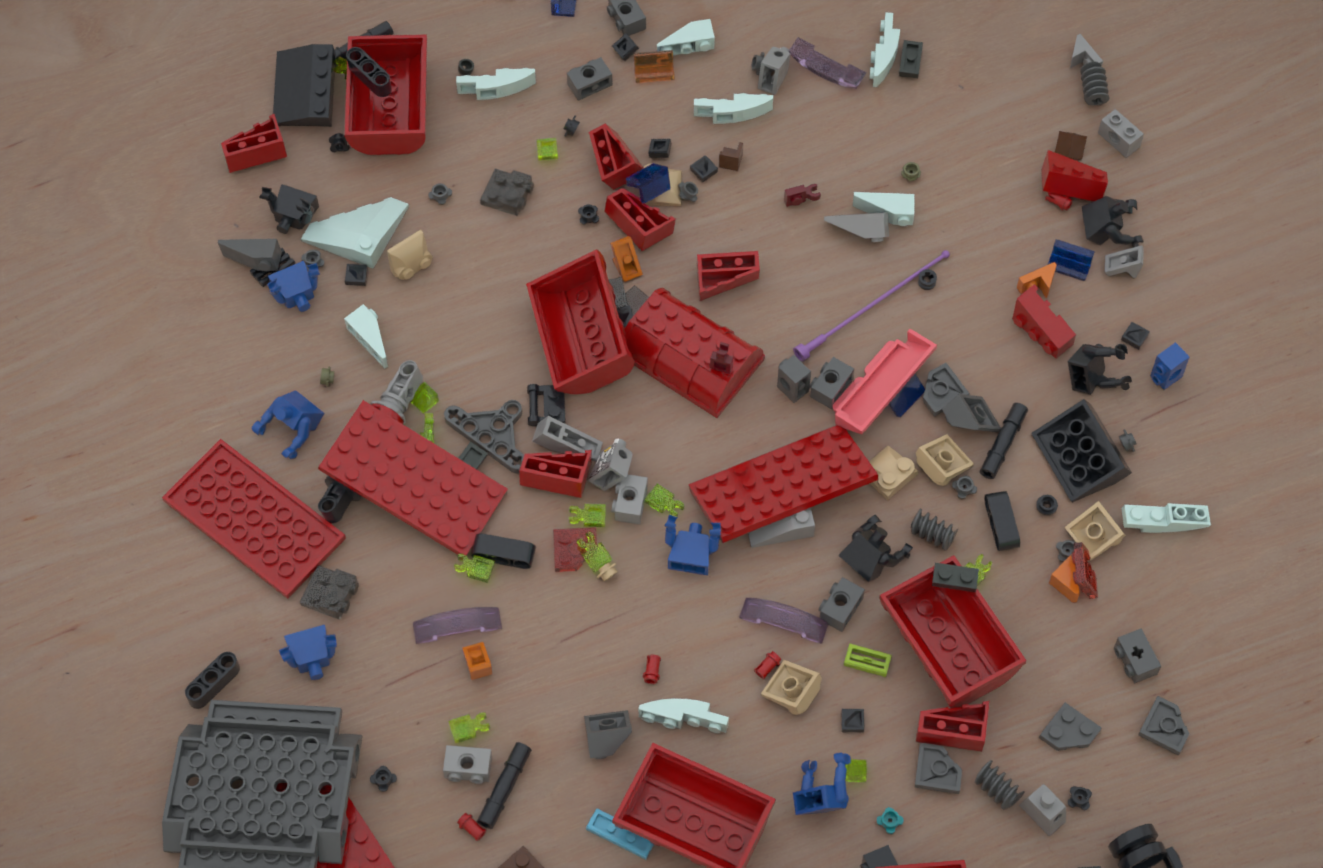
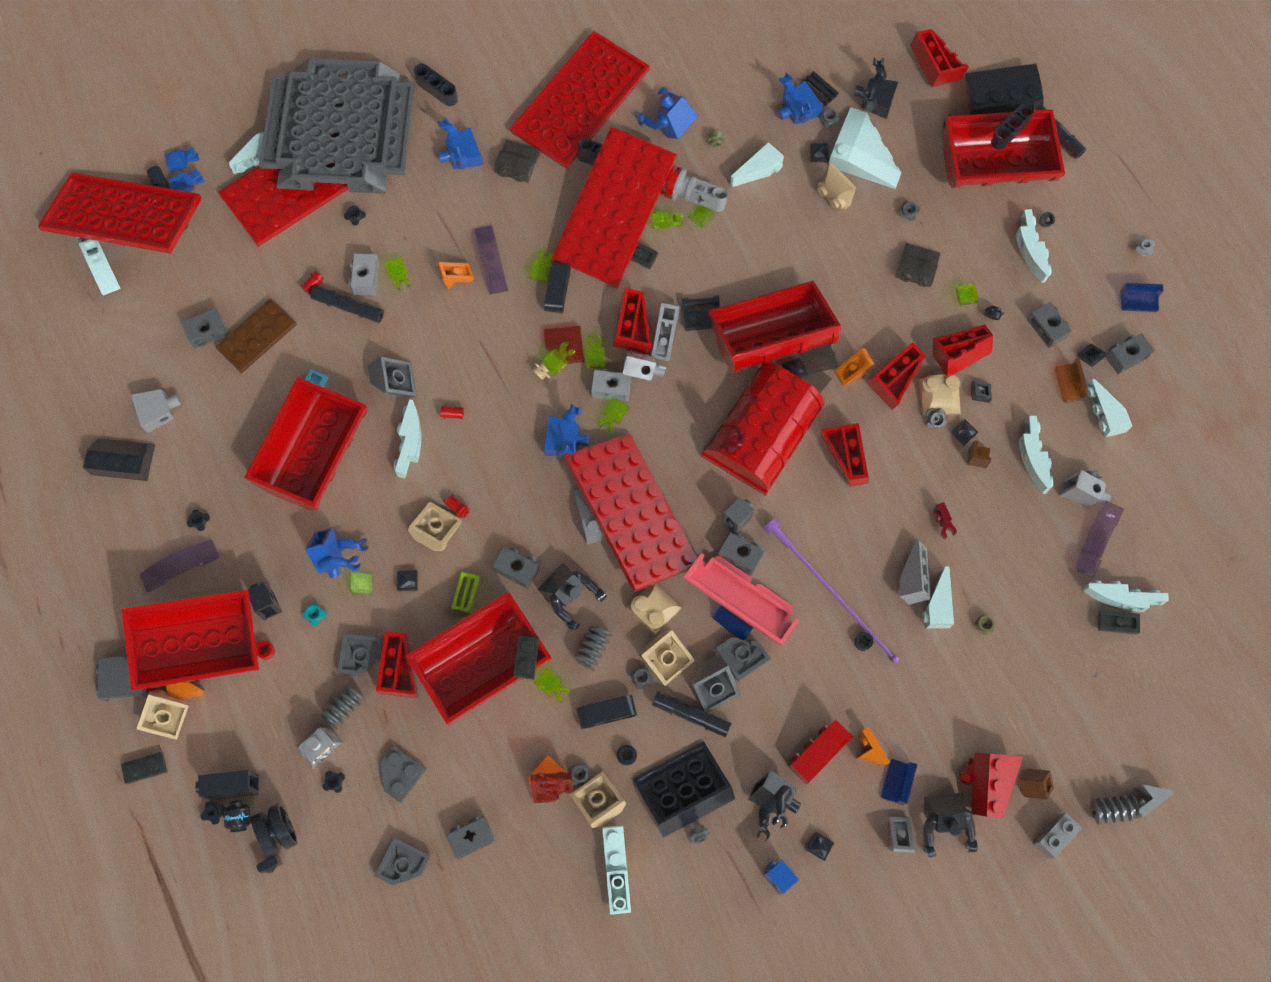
camera: 85 degrees right, 10 degrees up
(254, 253) = (827, 71): dark grey slope -> none
(483, 425) = (677, 265): dark grey beam -> none
(588, 209) = (901, 330): black plate -> none
(651, 181) = (933, 377): clear blue panel -> none
(785, 617) = (501, 519): clear purple slope -> none

